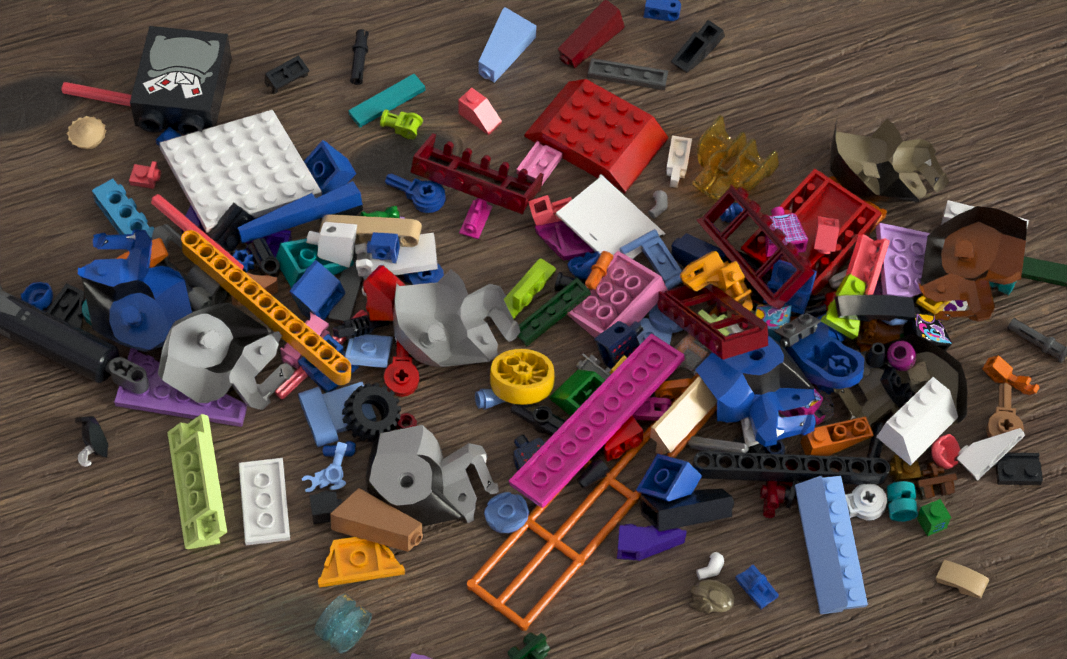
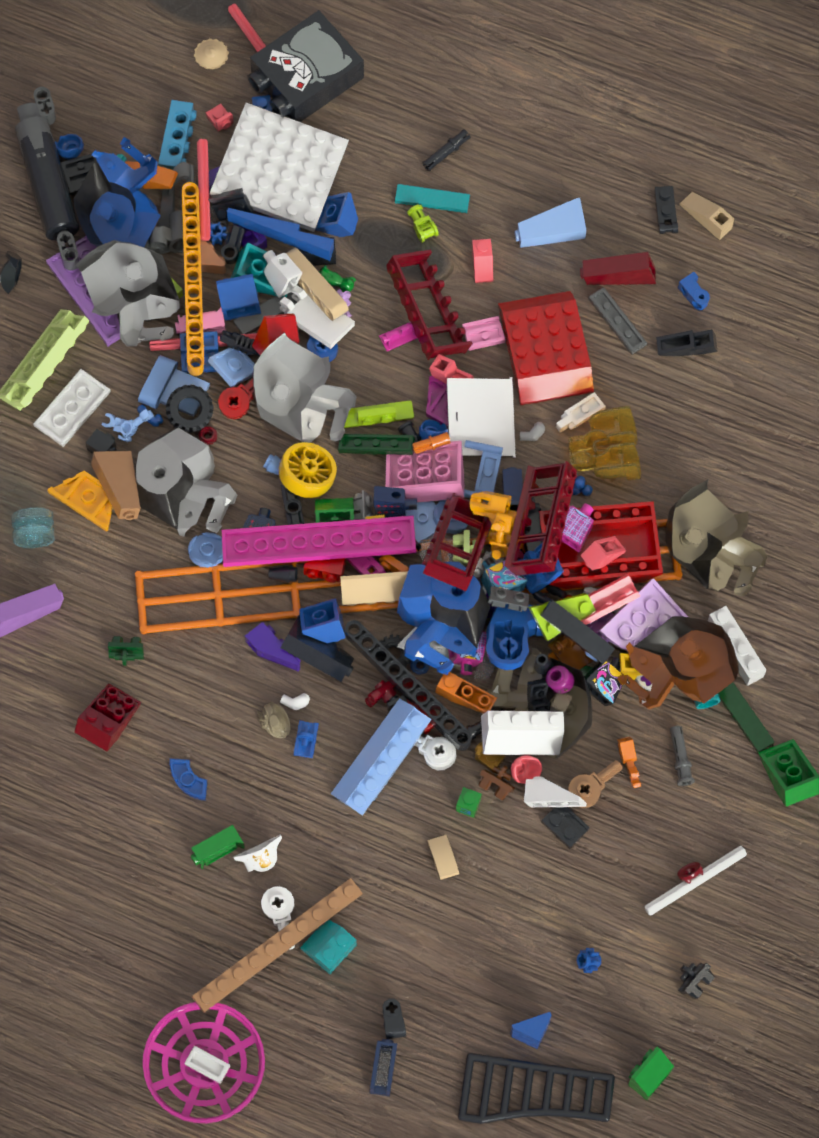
camera: 45 degrees right, 10 degrees up
(286, 73) = (382, 121): black hinge -> none
(384, 246) = (309, 303): blue brick -> none
(425, 195) = (382, 288): blue piece -> none
(716, 445) = (381, 629): light grey axle -> none
(902, 501) = (455, 778): teal wheel -> none

